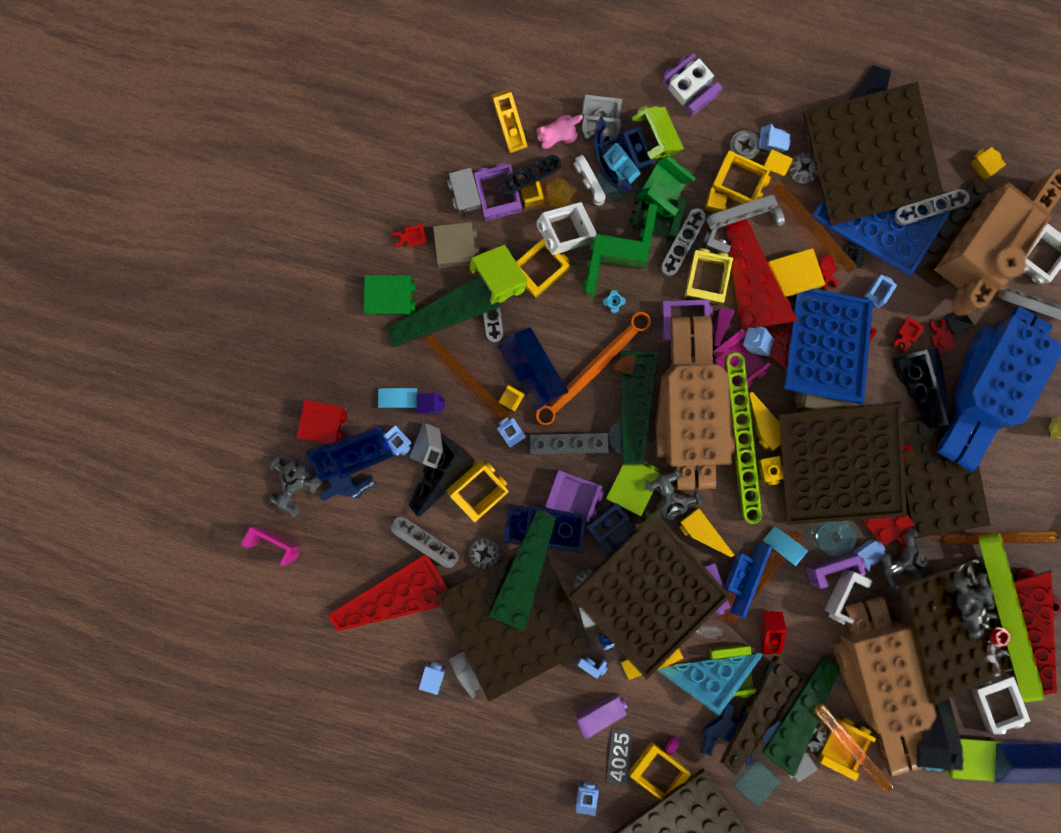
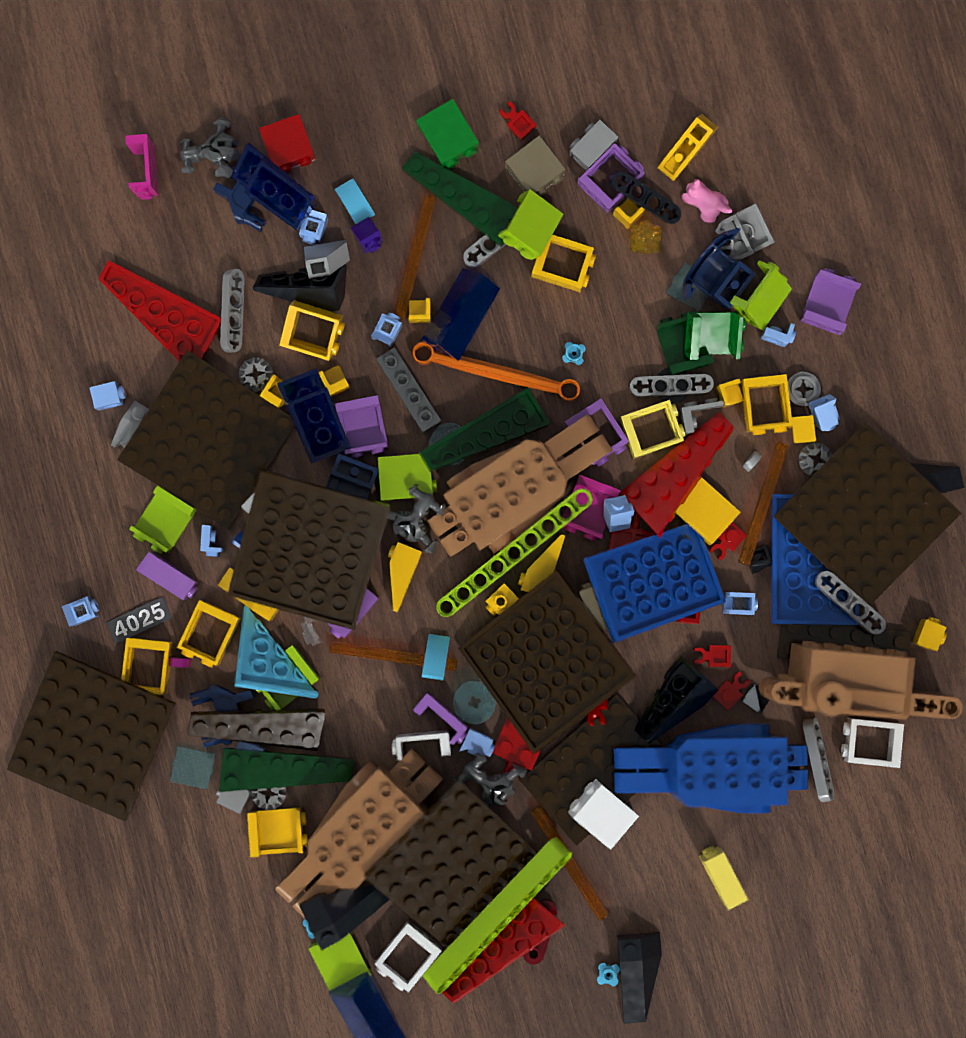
camera: 55 degrees right, 0 degrees up
(506, 549) = (271, 392): none -> yellow panel
(521, 582) = (246, 422): dark green wing -> none
(525, 496) = (334, 381): none -> yellow panel
(555, 694) = (163, 521): none -> lime panel
(580, 220) = (630, 275): white window -> none
(589, 180) = (676, 259): white plate -> none
(620, 251) = (623, 328): green bracket -> none
(621, 163) = (709, 278): medium azure slope -> none
(625, 364) = (517, 399): reddish brown tile -> none
(651, 693) = (217, 612): none -> yellow window
(693, 84) = (831, 304): white brick -> none
(693, 141) = (776, 336): none -> light blue bracket
(722, 320) = (616, 468): magenta slope -> none
(742, 212) = (732, 421): light grey beam -> none
(745, 577) = (382, 635): blue bracket -> none
(773, 632) = (345, 695): red slope -> none
(854, 749) = (280, 836): clear orange axle -> none
(972, 601) = (485, 862): dark grey piece -> none
(980, 491) = (602, 814): none -> white panel
(1003, 639) = (470, 918): red plate -> none

